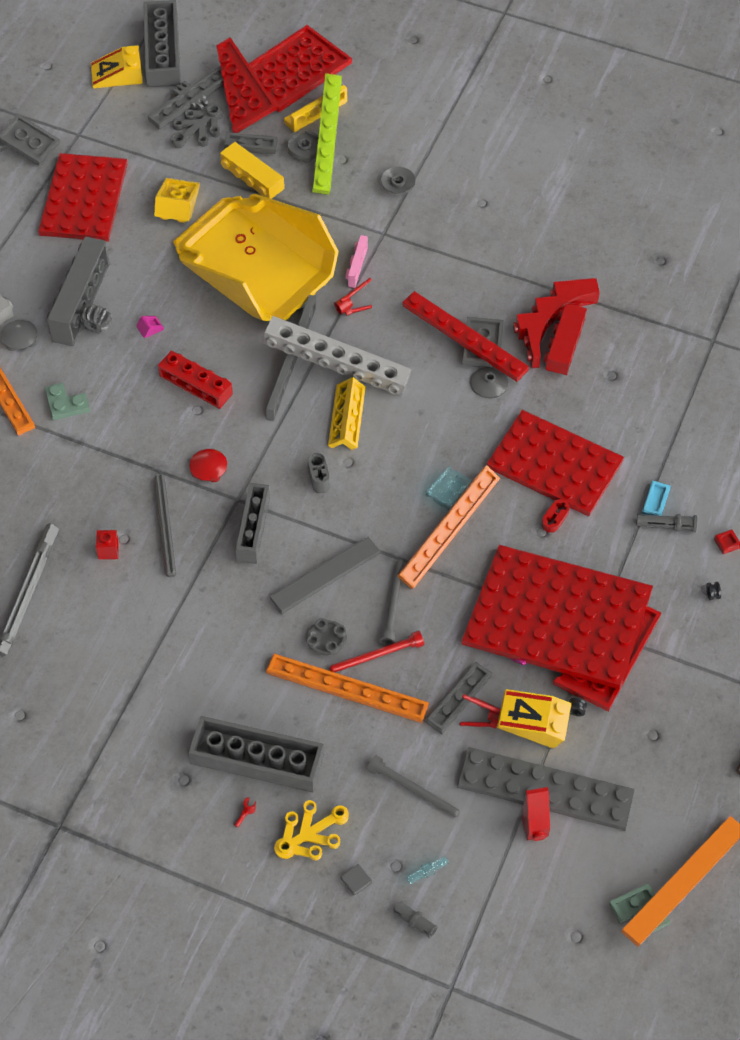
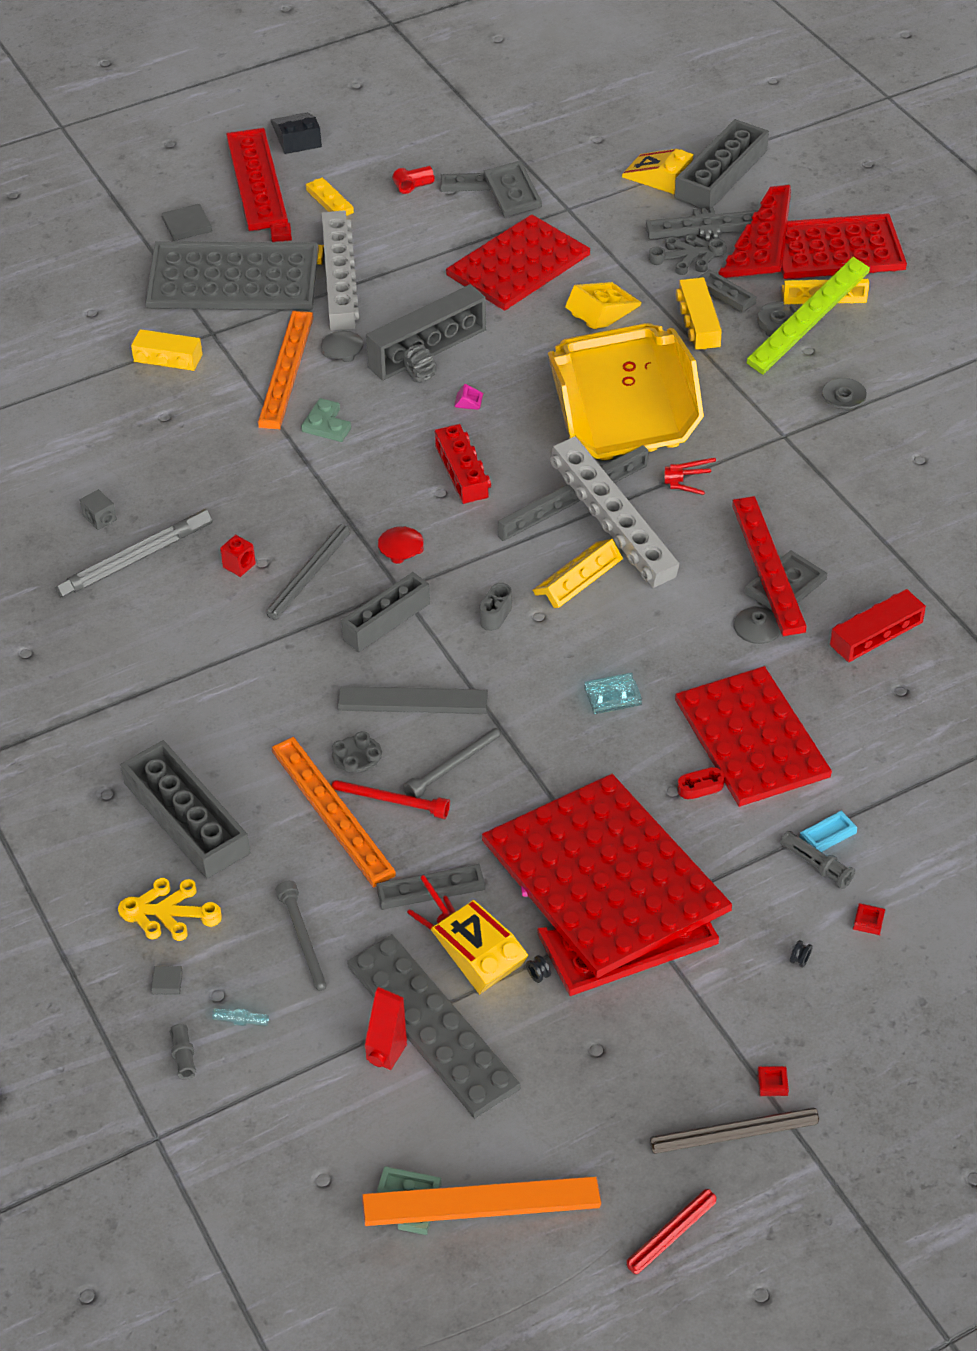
camera: 40 degrees right, 10 degrees down
(246, 810) = (136, 854): red hand -> none
(357, 261) = (728, 443): bright pink plate -> none
(448, 527) = (577, 727): tile -> none
(533, 326) = (855, 595): red arch -> none

